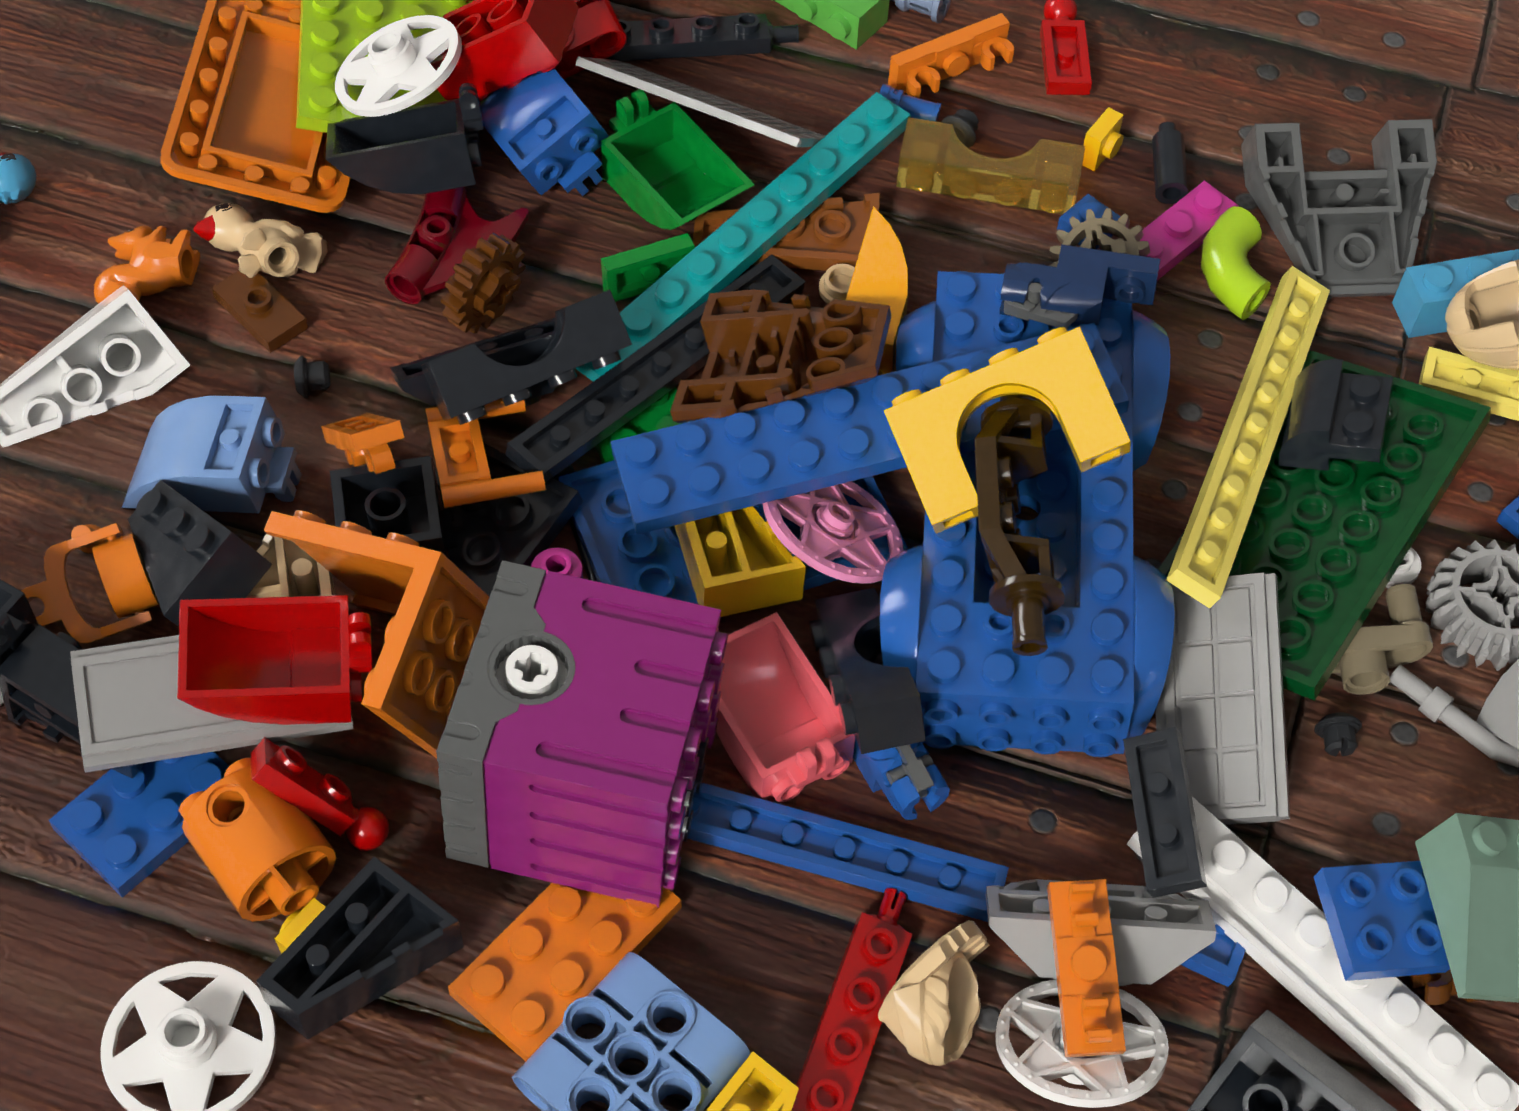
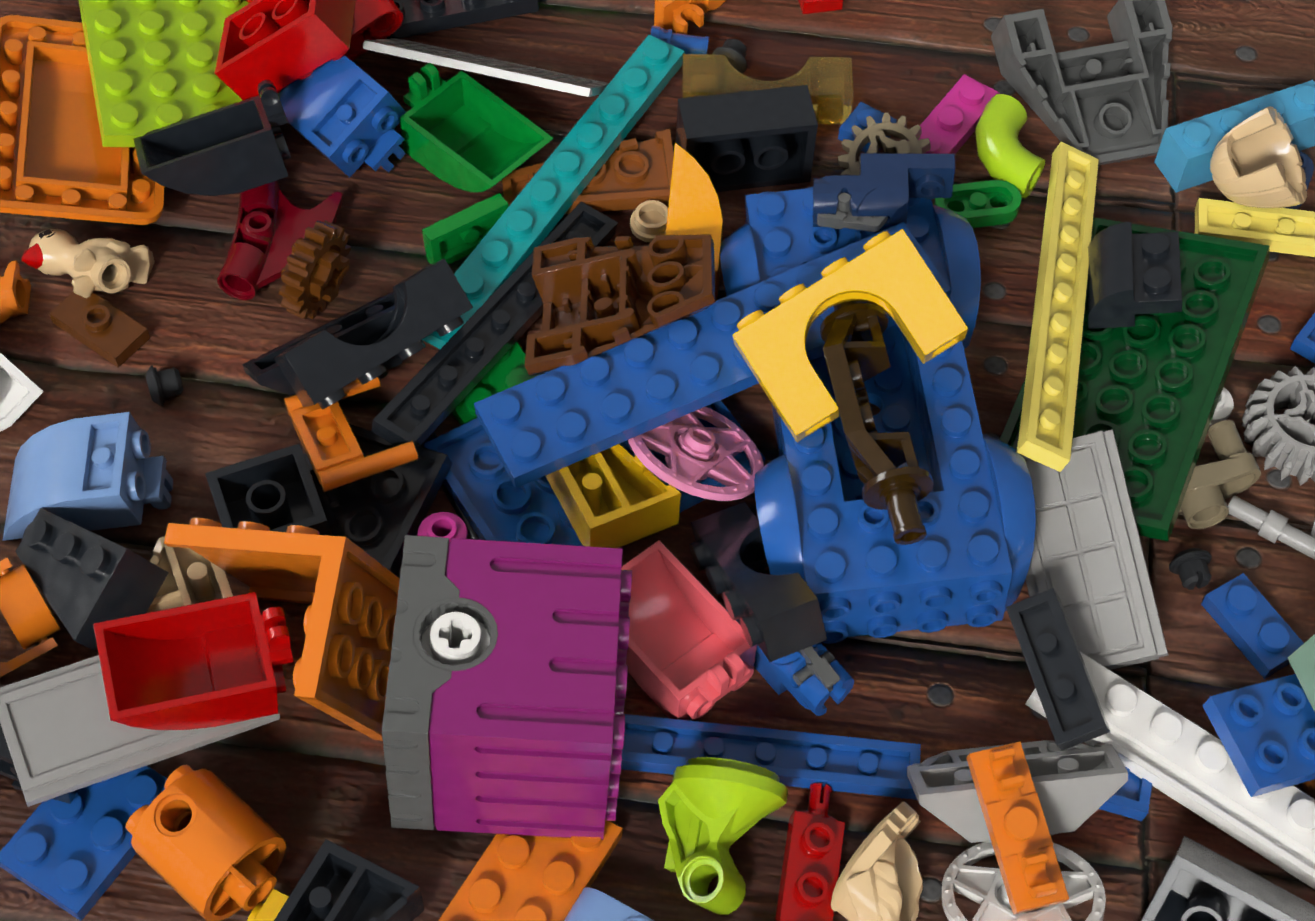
camera: 10 degrees left, 0 degrees up
(318, 796) = (259, 790): red plate -> none
(365, 440) = (234, 437): orange plate -> none
(398, 63) = (193, 72): white wheel -> none
(765, 900) = (704, 814): none -> lime piece
(958, 213) = (750, 136): none -> black brick
(1103, 139) = (865, 48): yellow plate -> none
(1169, 164) = (929, 63): black cylinder -> none
(1187, 315) = (977, 202): none -> green plate
(1390, 802) = (1252, 624): none -> blue plate

